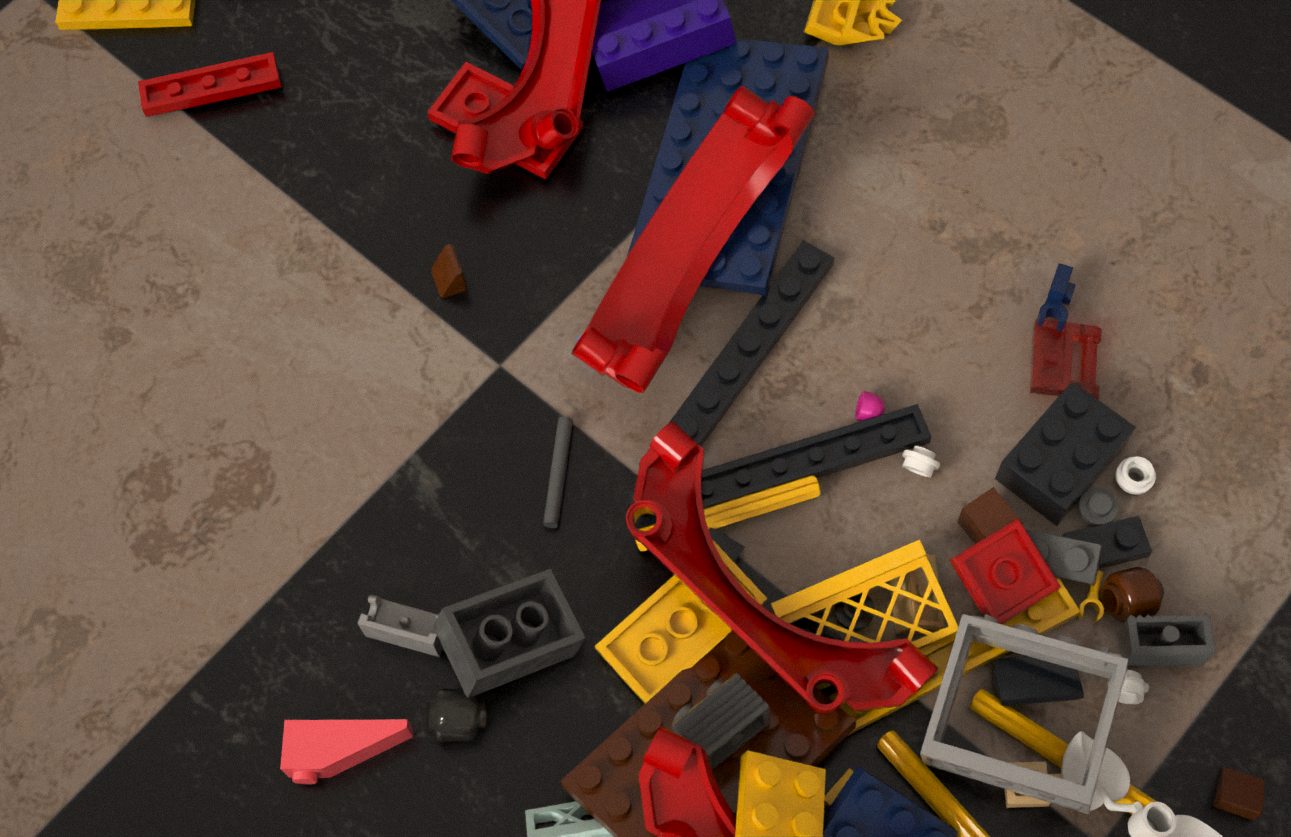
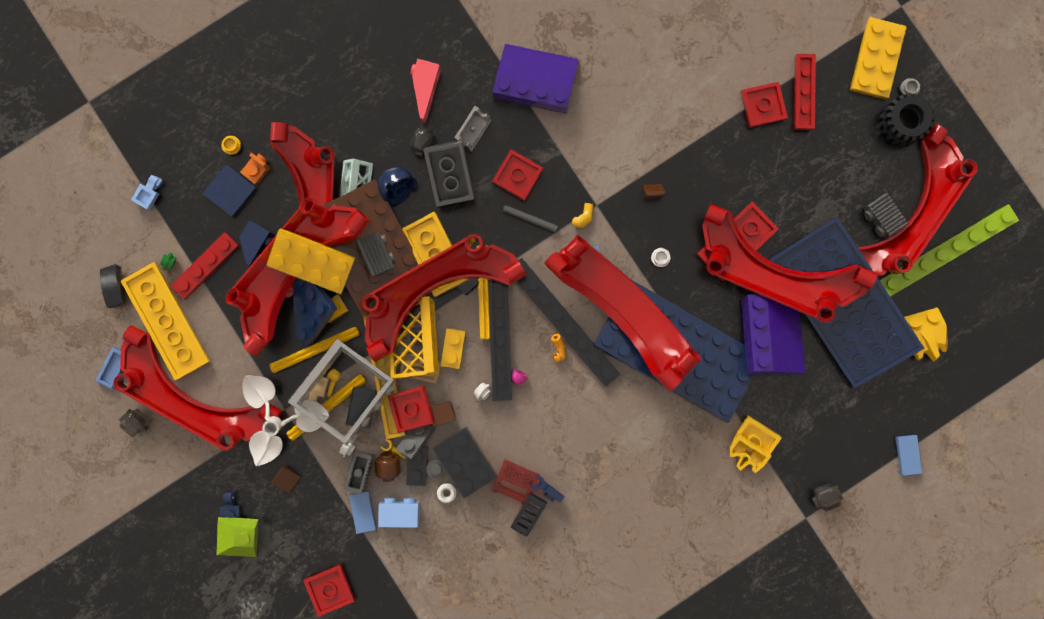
camera: 105 degrees right, 20 degrees up
(246, 139) = (764, 104): none -> red plate
(275, 534) = (535, 78): none -> dark purple slope
(478, 515) = (517, 175): none -> red plate
(528, 373) = (585, 218): none -> yellow arm
(556, 741) = (396, 184): none -> dark blue cylinder
(568, 231) = (660, 257): none -> white plate
(792, 350) = (560, 355): none -> light orange arm
(854, 541) = (453, 348): none -> yellow plate
(999, 752) = (333, 375): none -> yellow hand
(1138, 318) = (524, 525): none -> black slope
(1212, 547) = (399, 513): none -> light blue brick
(1243, 619) = (362, 512): none -> medium blue tile

